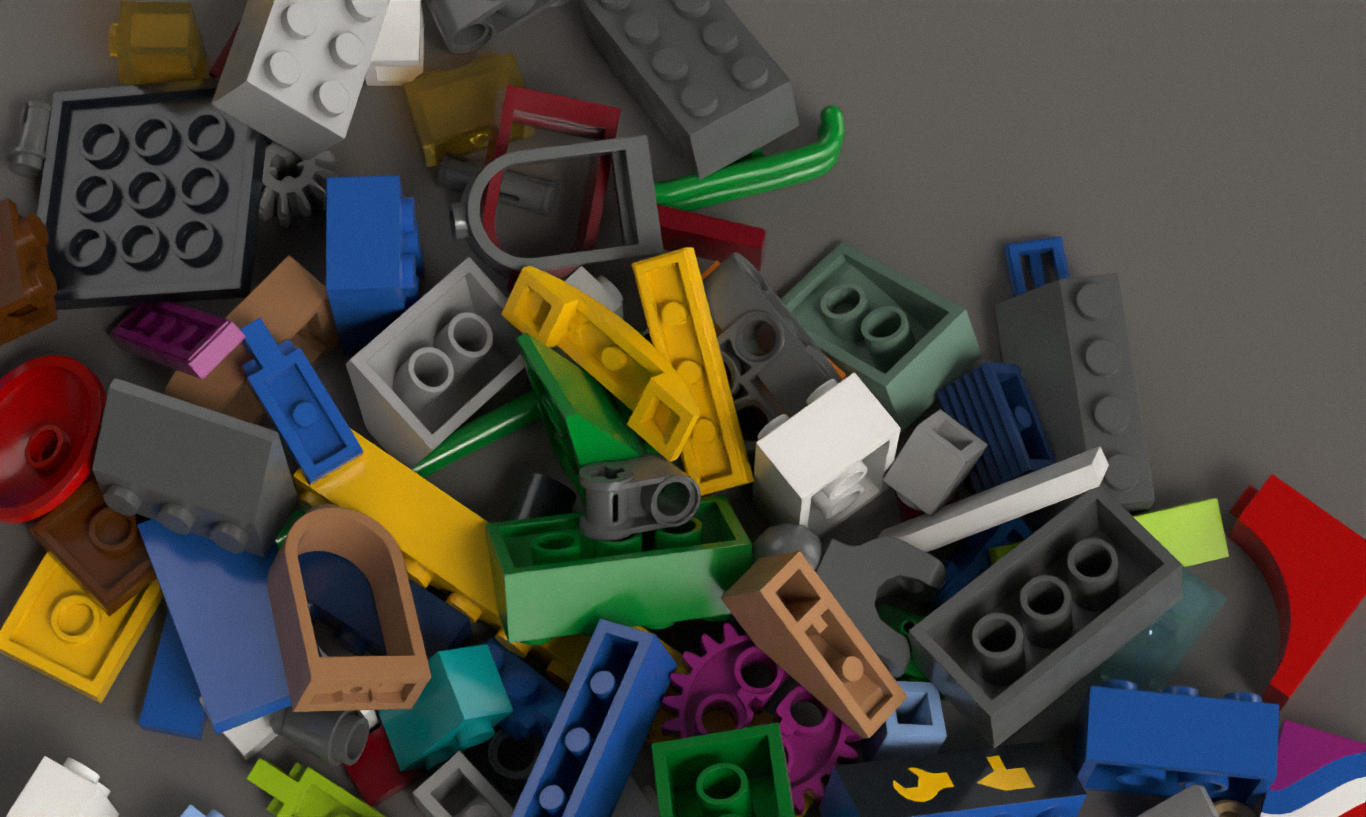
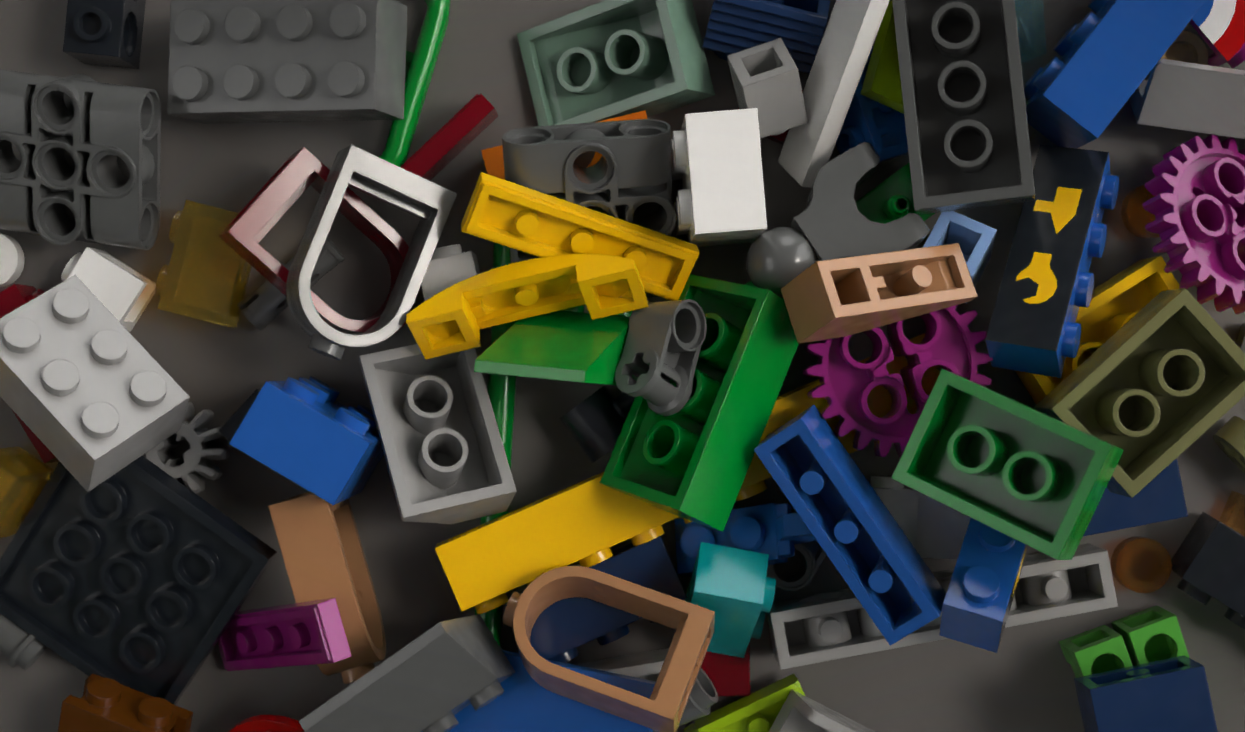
camera: 55 degrees left, 20 degrees up
(297, 404) = (409, 580): blue hinge -> none

